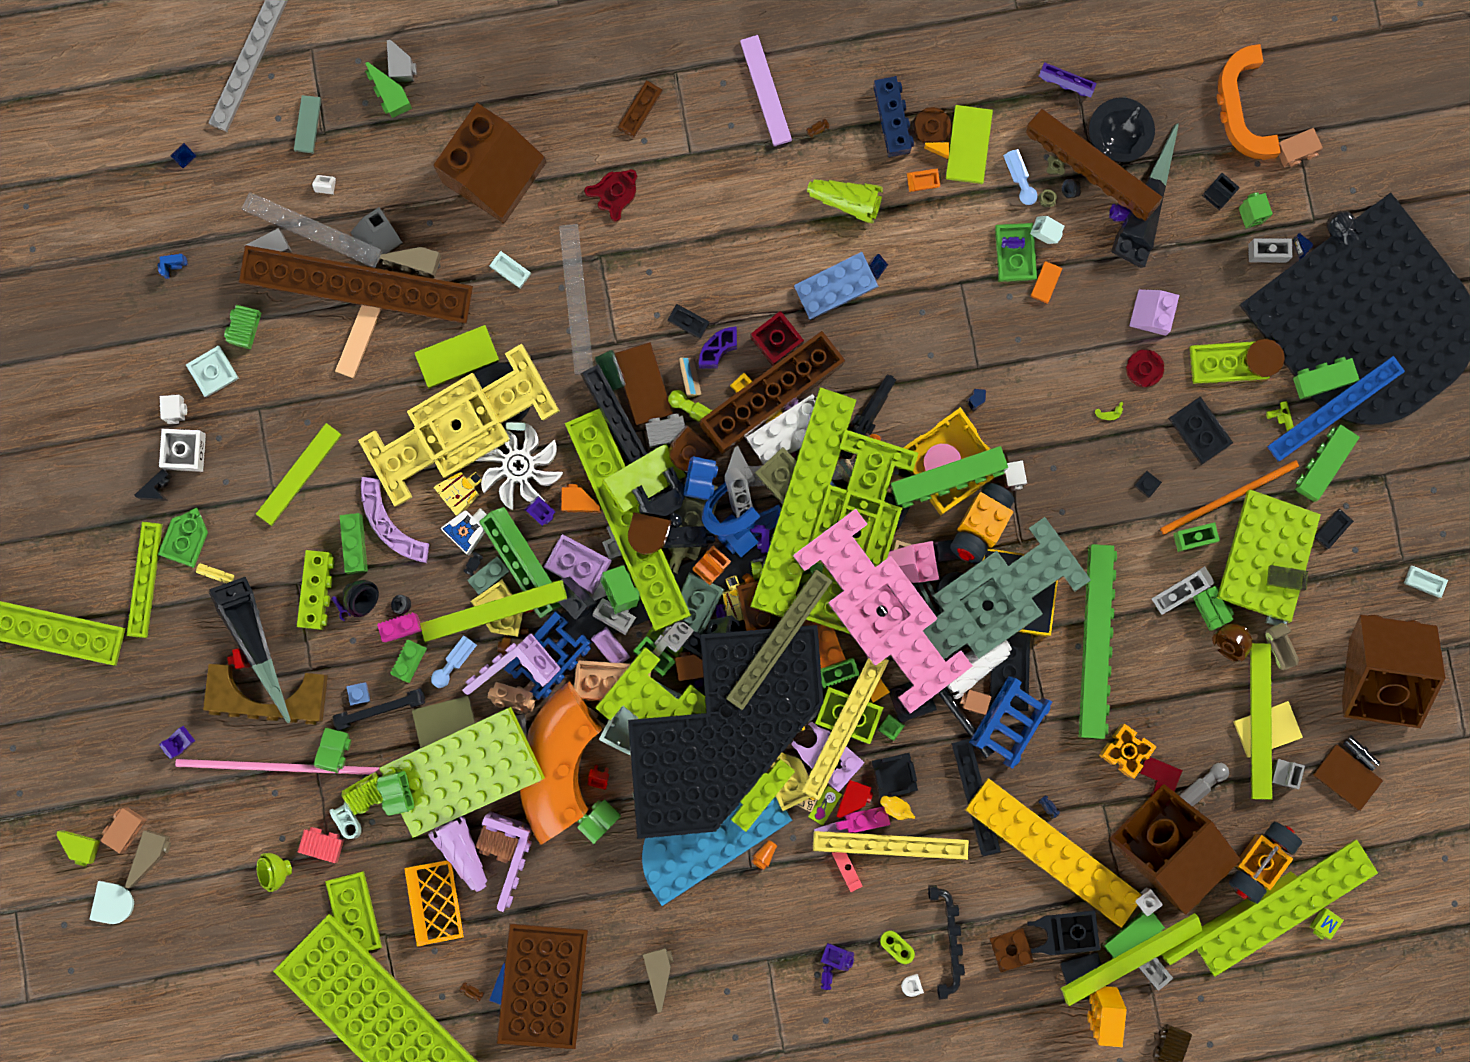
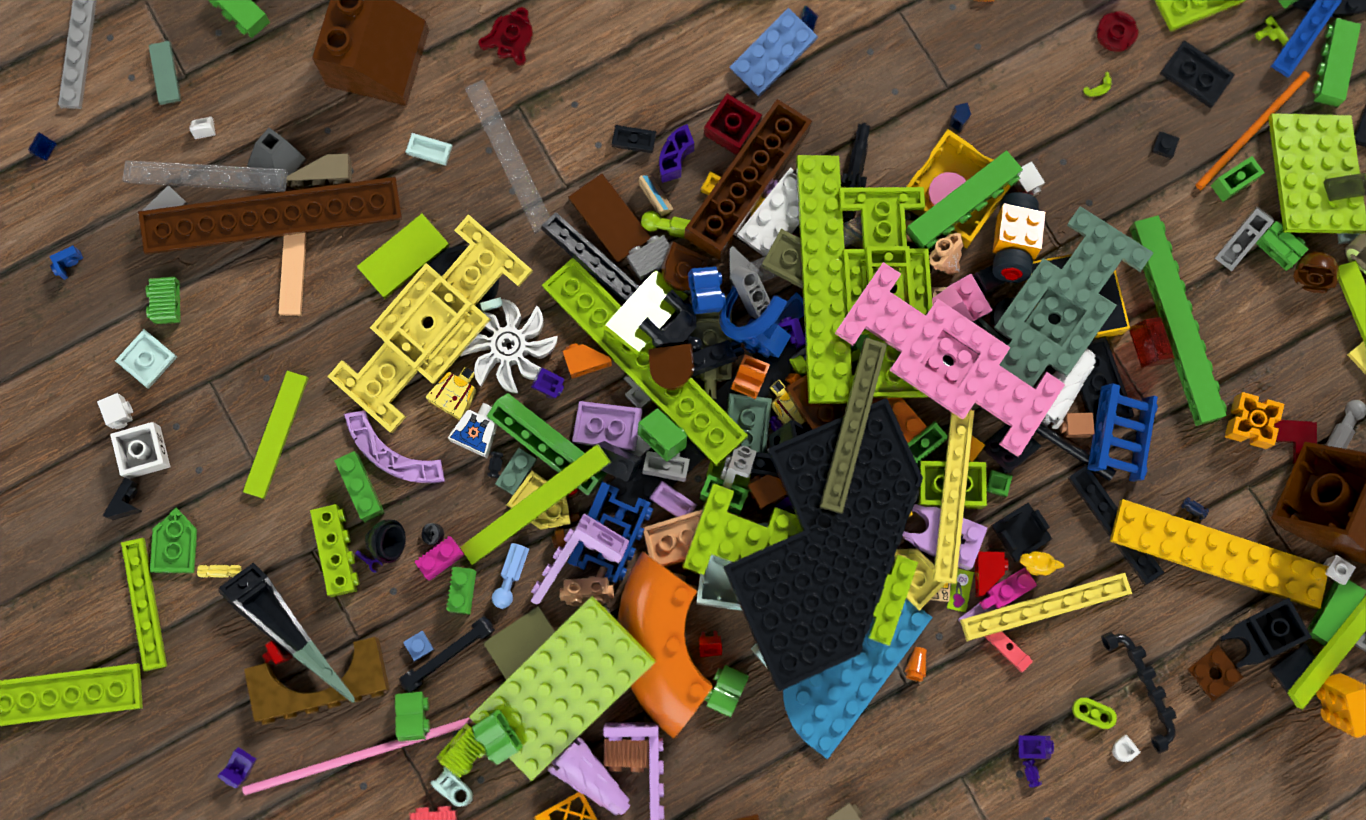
camera: 20 degrees left, 5 degrees down
(611, 370) = (571, 214): clear green tile -> none
(917, 517) = (947, 254): none -> light nougat rock
(1066, 654) = (1151, 343): none -> clear red slope

